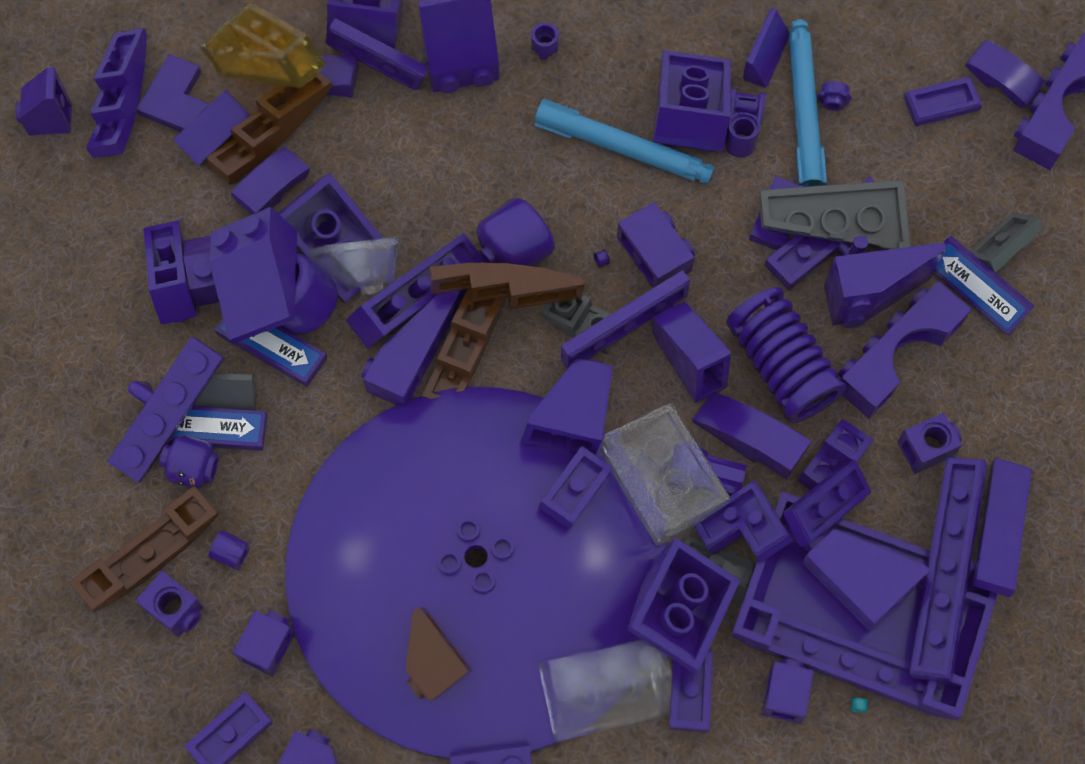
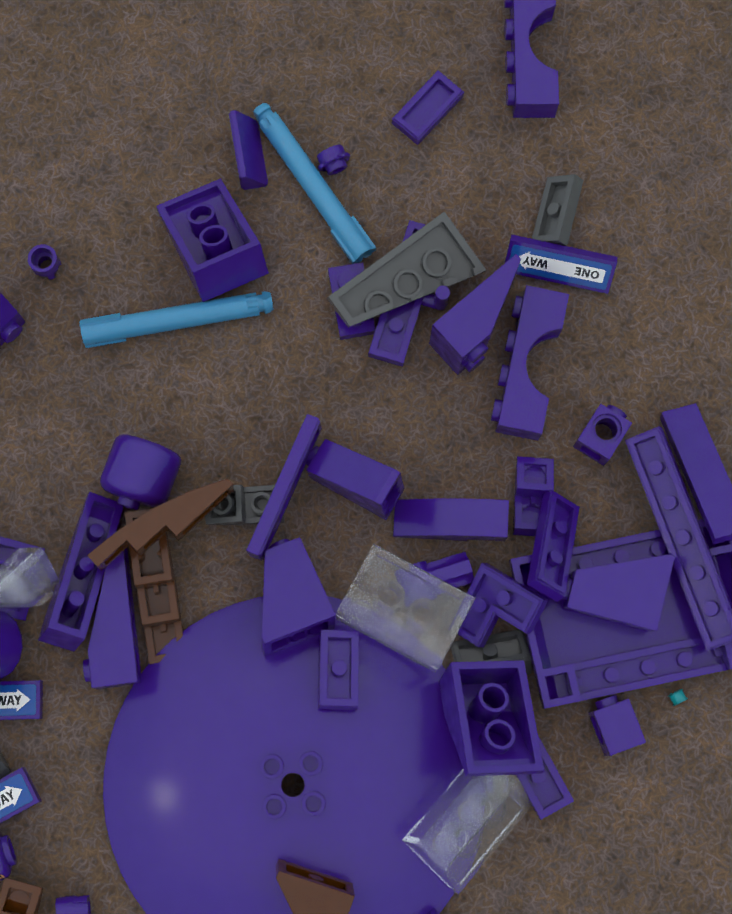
camera: 35 degrees left, 10 degrees up
(601, 258) = (224, 438): dark purple piece -> none
(655, 244) = (266, 399): dark purple brick -> none
(745, 119) = (270, 228): dark purple piece -> none
(785, 354) = (437, 441): dark purple piece -> none
(1006, 71) = (465, 47): dark purple slope -> none

